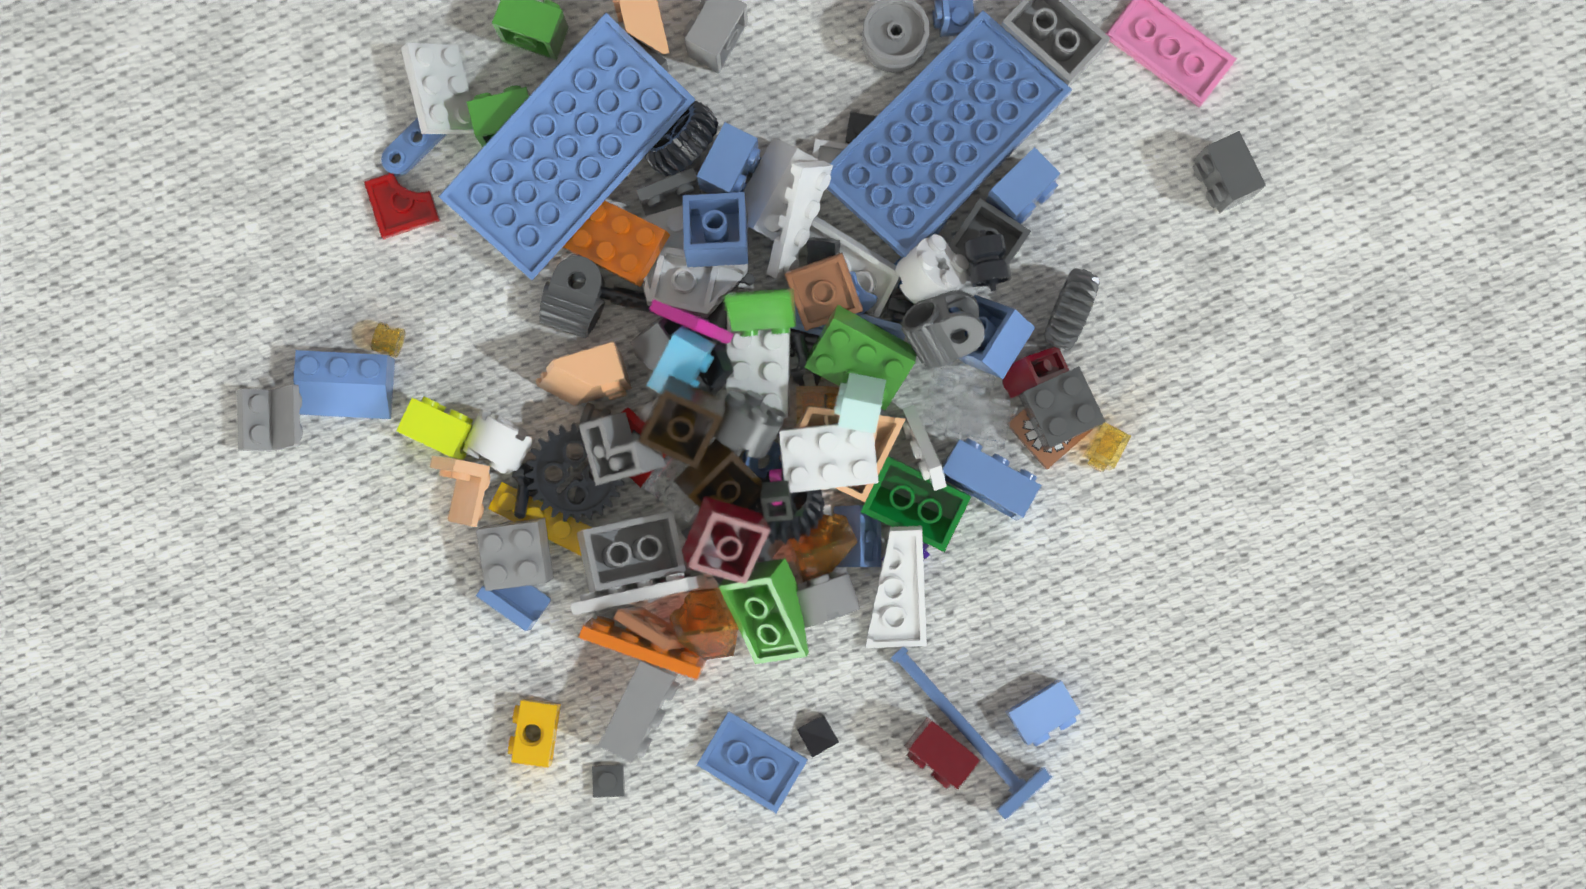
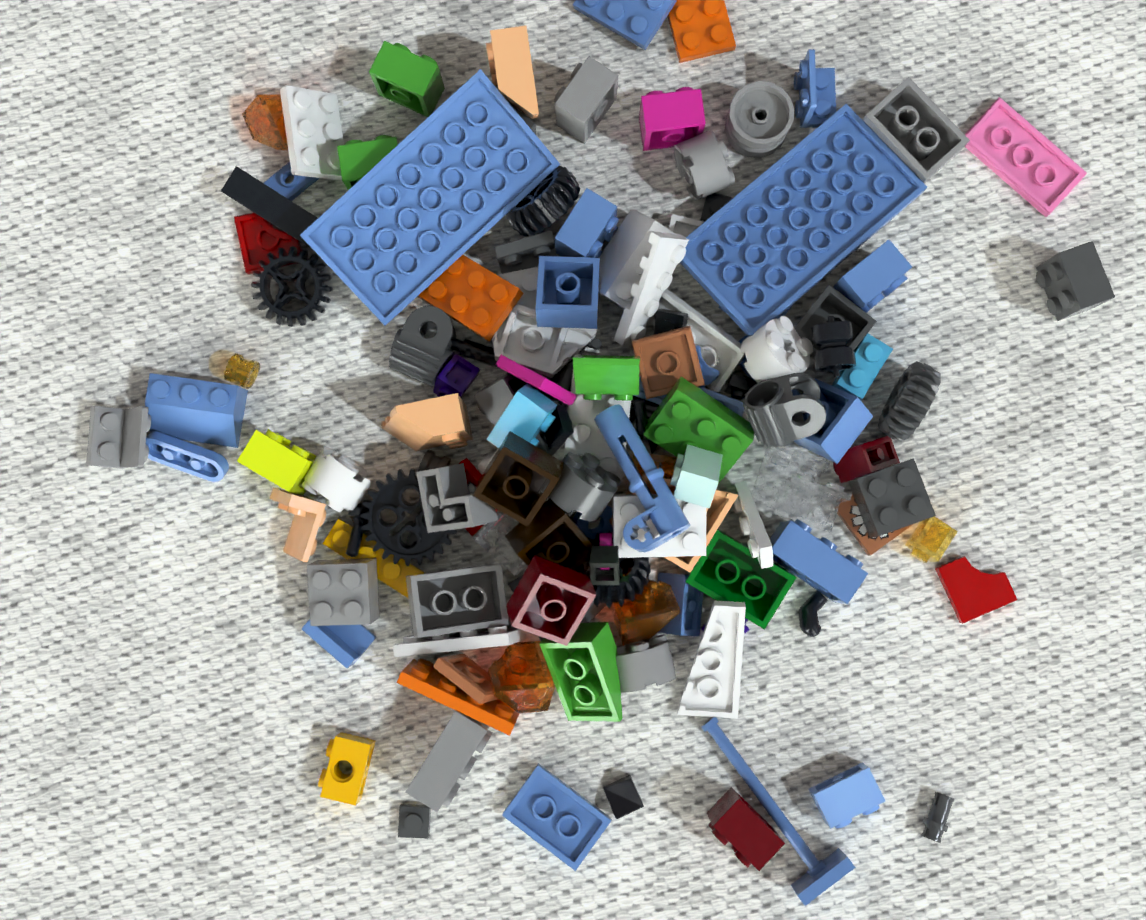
camera: 10 degrees right, 0 degrees up
(340, 433) = (186, 457): none -> medium blue plate
(389, 81) = (266, 121): none -> clear orange slope
(401, 167) = (268, 204): none -> black slope
(439, 236) = (270, 271): none -> black gear
(608, 326) = (455, 377): none -> dark purple bracket
(805, 41) = (670, 117): none -> dark pink brick
(829, 438) = (662, 510): none -> medium blue piece
(842, 86) = (703, 164): none -> light grey brick
(990, 534) = (808, 614): none -> black arm
(1025, 274) = (870, 358): none -> medium azure brick
(1137, 726) = (937, 817): none -> dark grey pin
(1155, 495) = (973, 591): none -> red tile

